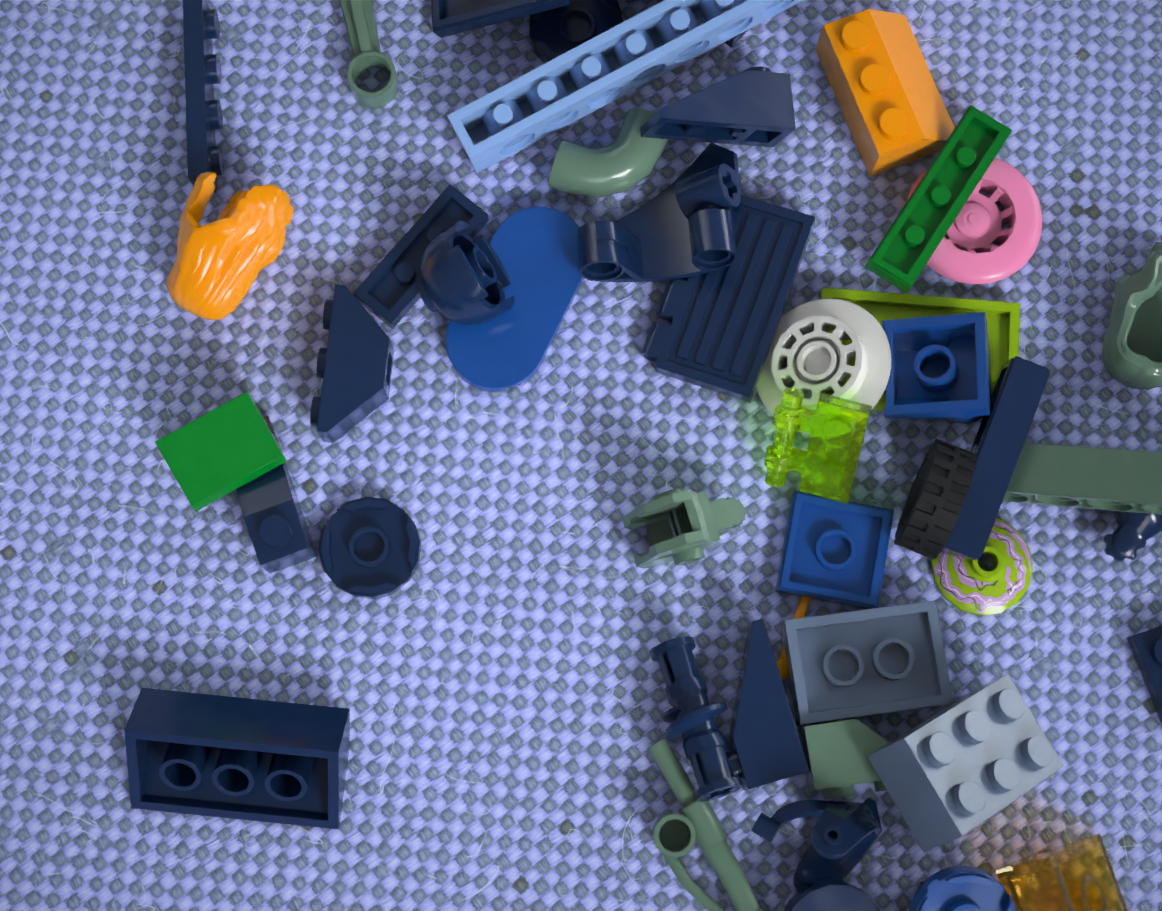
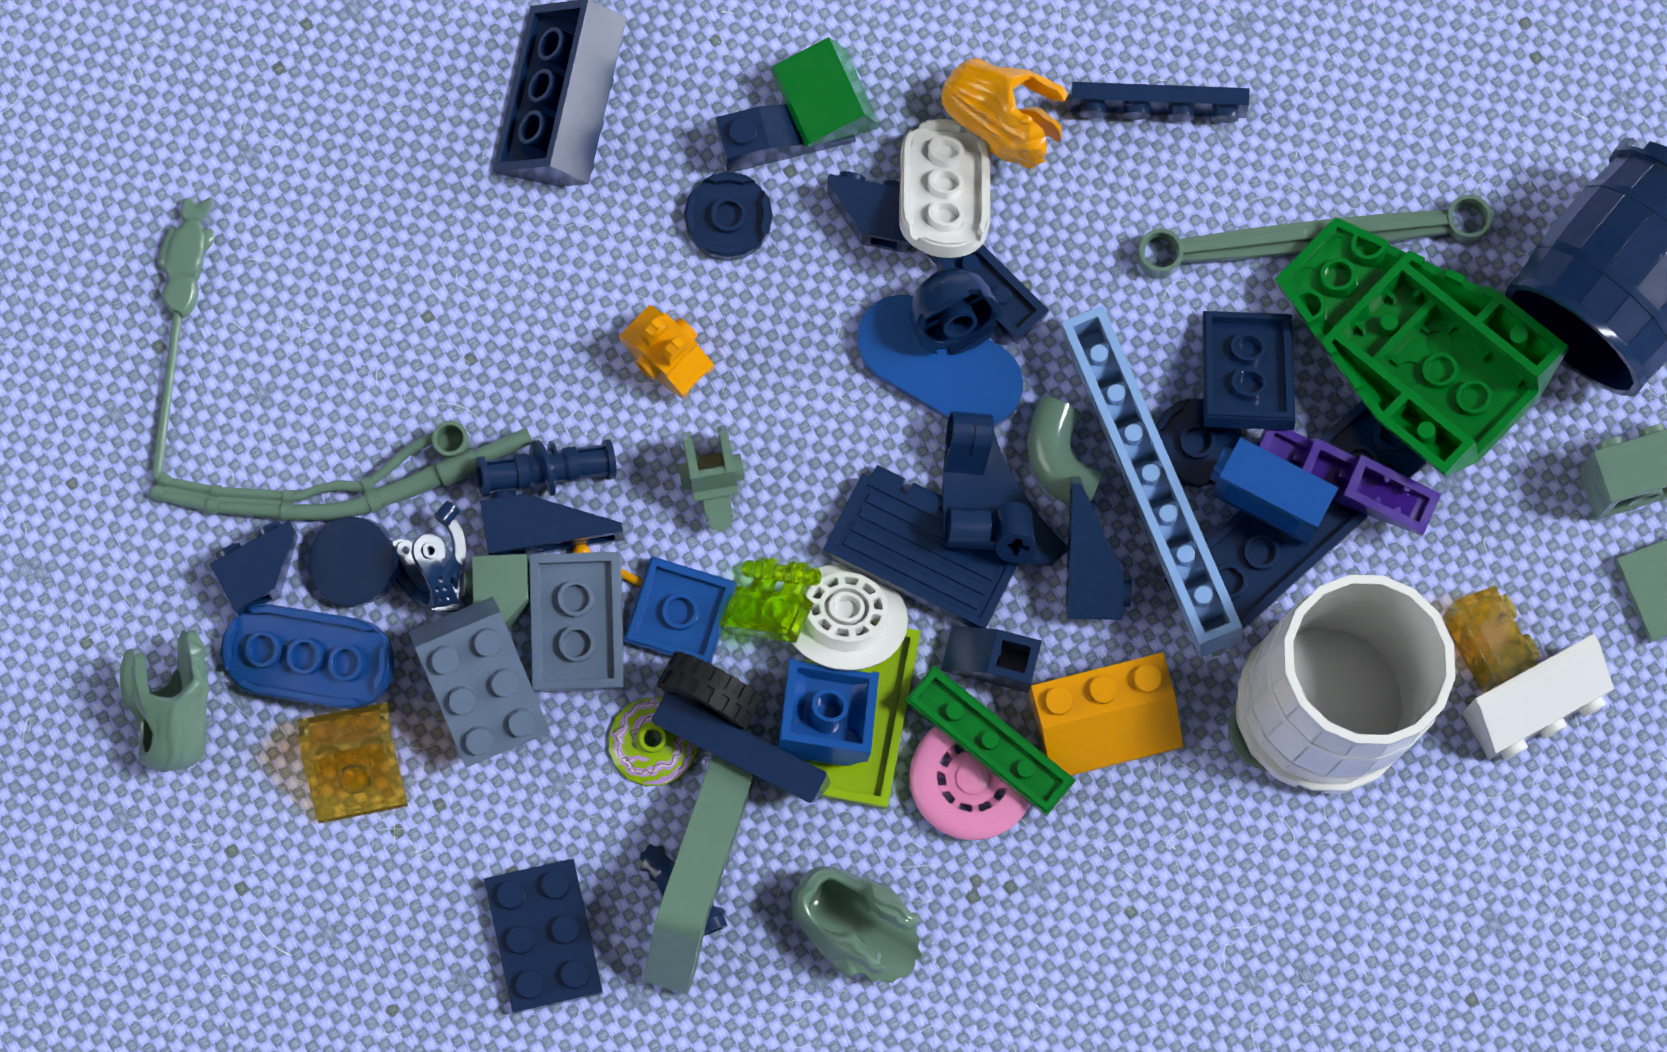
camera: 95 degrees right, 0 degrees up
(326, 300) = (944, 189): none -> white tile
(541, 595) = (666, 350): none -> light orange hinge
(845, 204) = (992, 656): none -> dark blue slope

